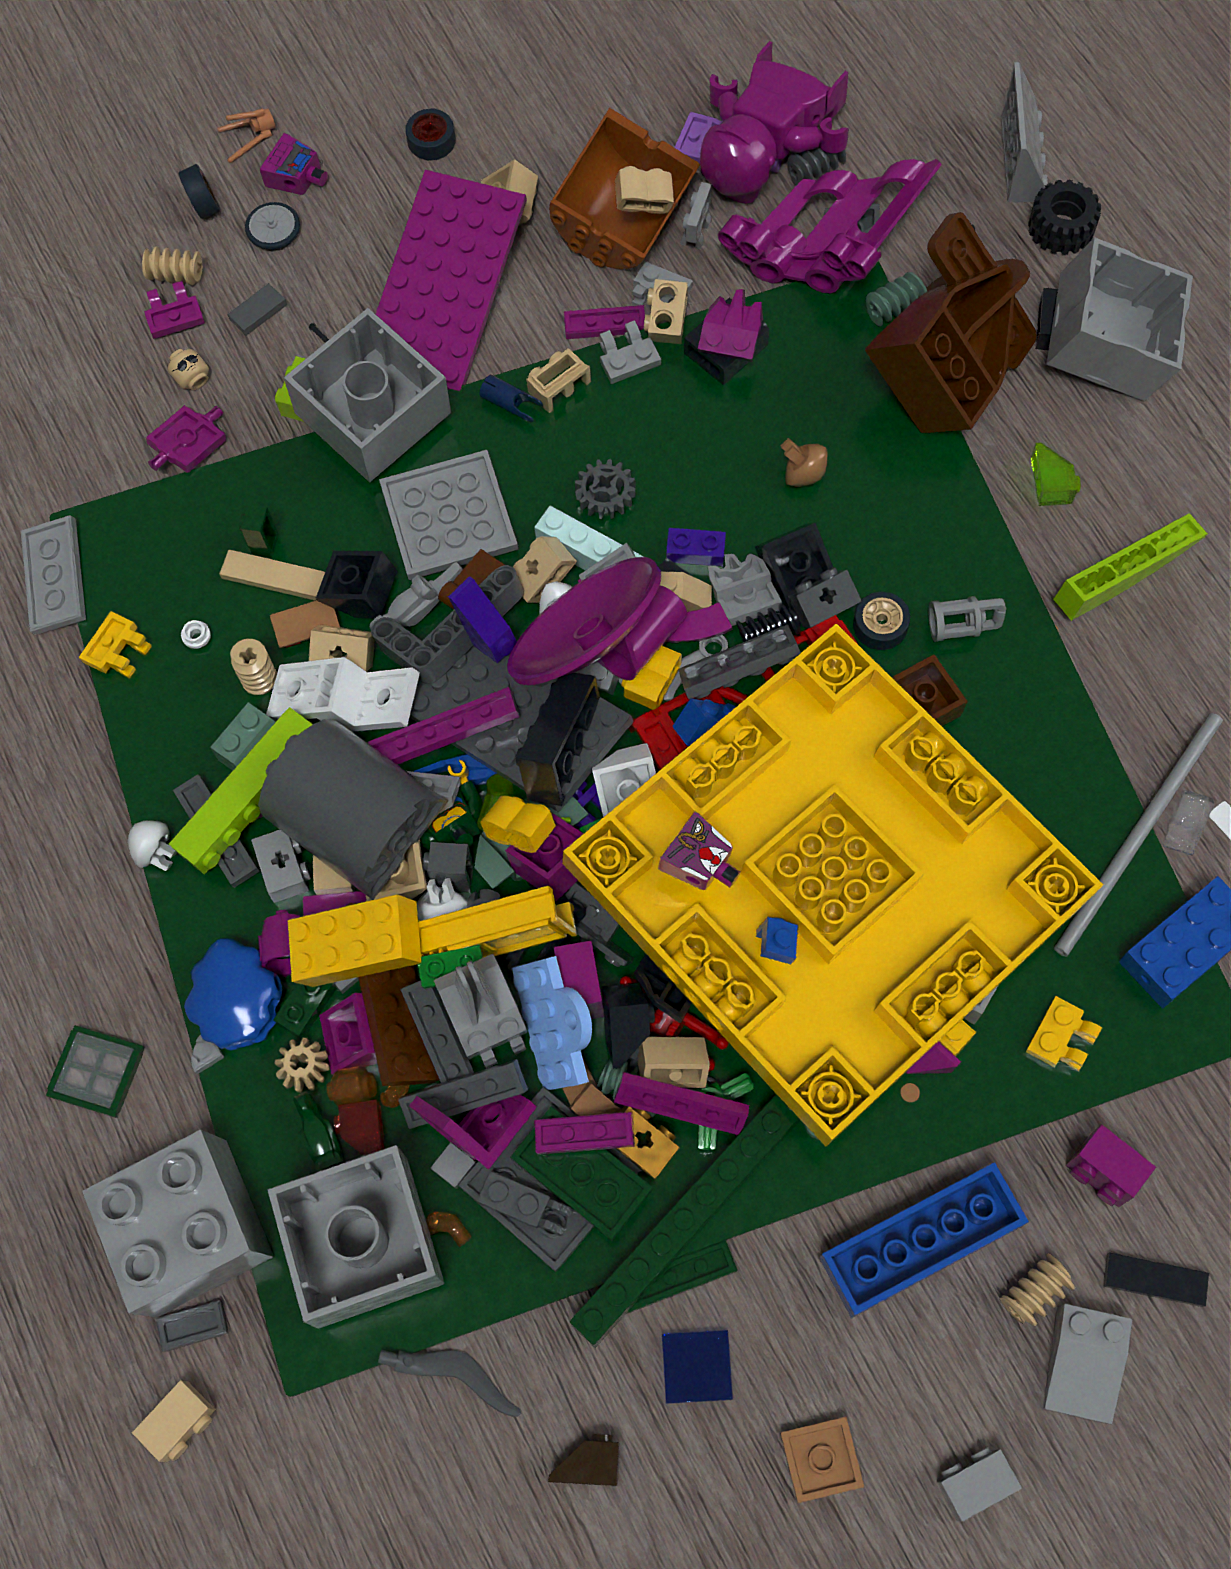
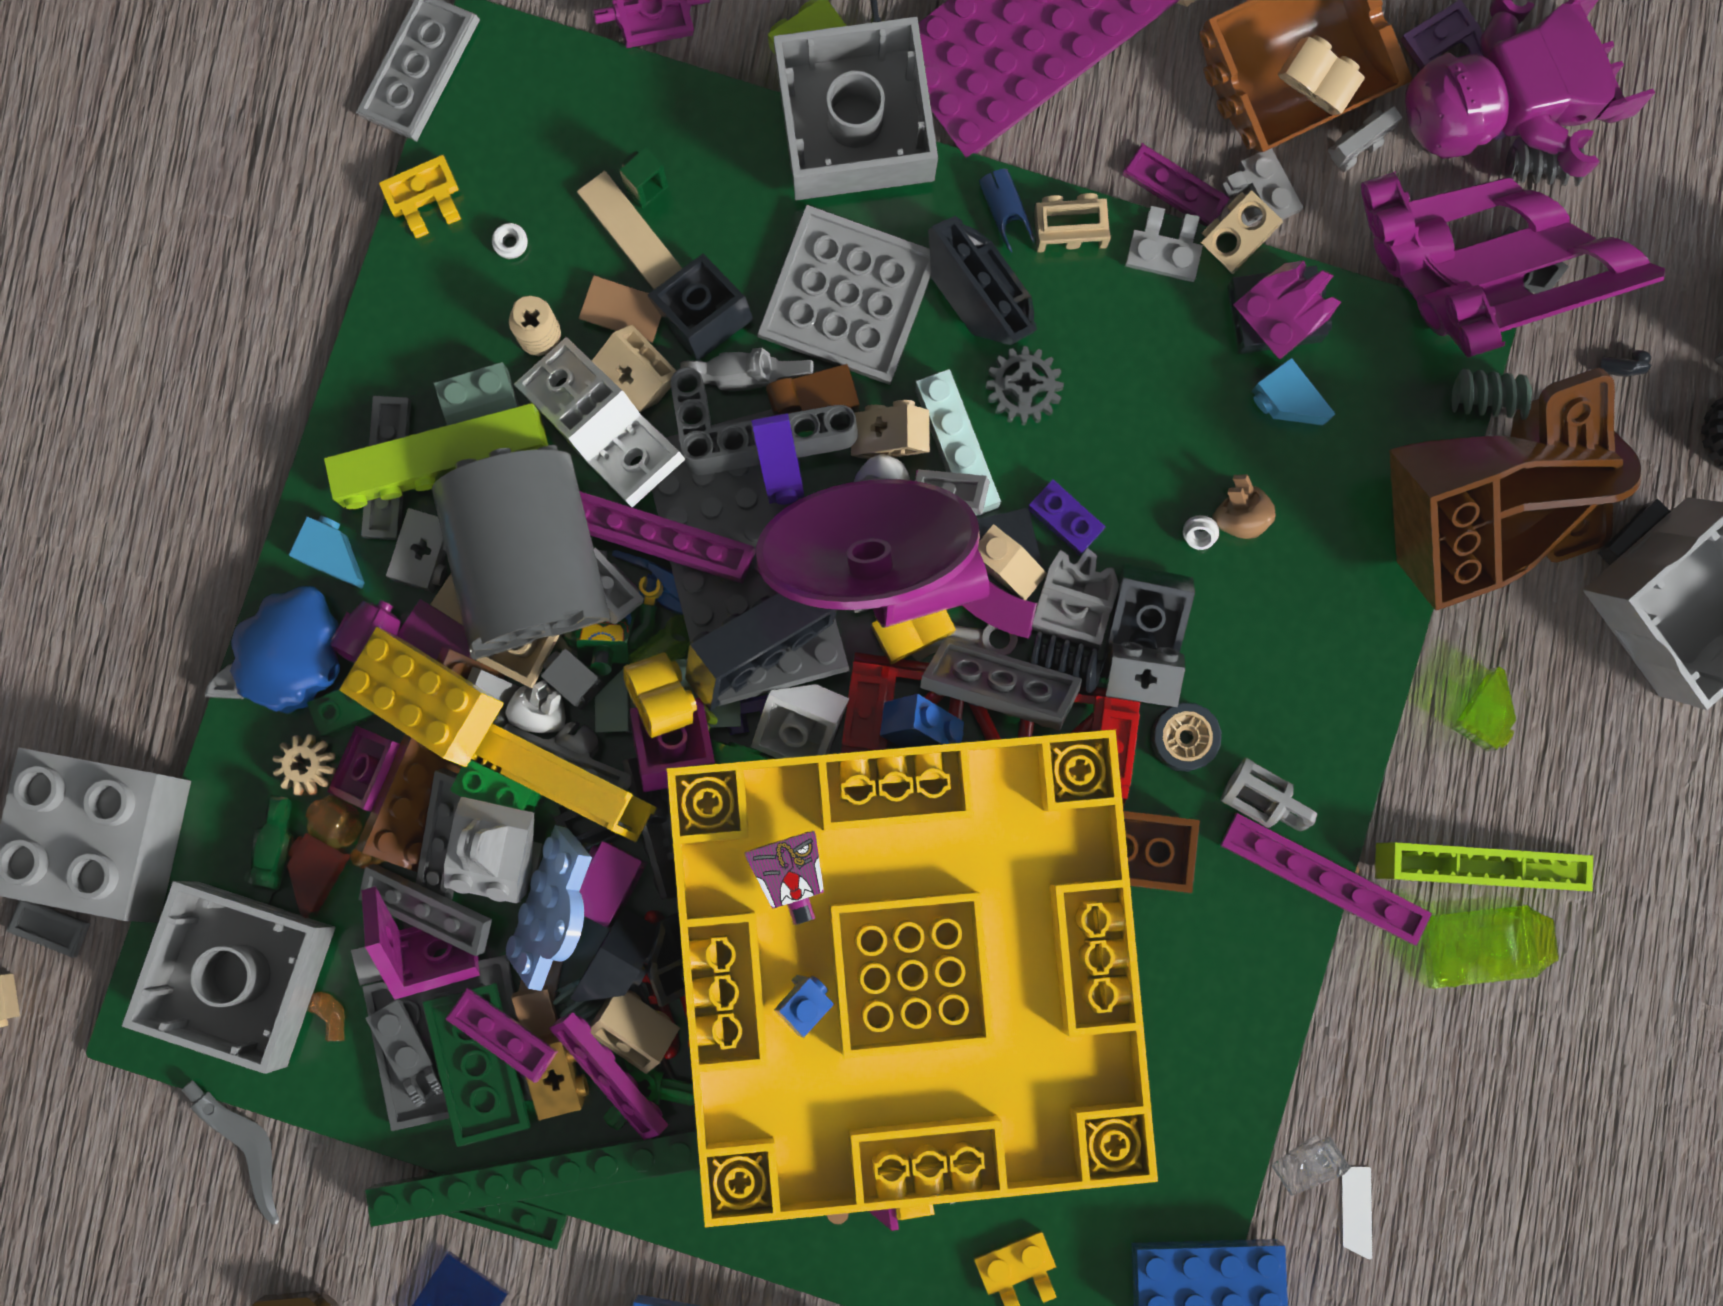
camera: 30 degrees right, 15 degrees up
(95, 1071) = (120, 621): clear piece -> none
(148, 844) = (312, 434): white piece -> none
(214, 912) = (327, 550): none -> dark azure slope
(526, 450) = (979, 283): none -> black wedge
(778, 382) = (1291, 396): none -> dark azure slope
(793, 499) = (1197, 539): none -> white plate
(1041, 641) = (1325, 879): none -> magenta plate
(1139, 833) = (1278, 1133): light grey piece -> none
(1174, 612) = (1488, 946): none -> clear neon green slope

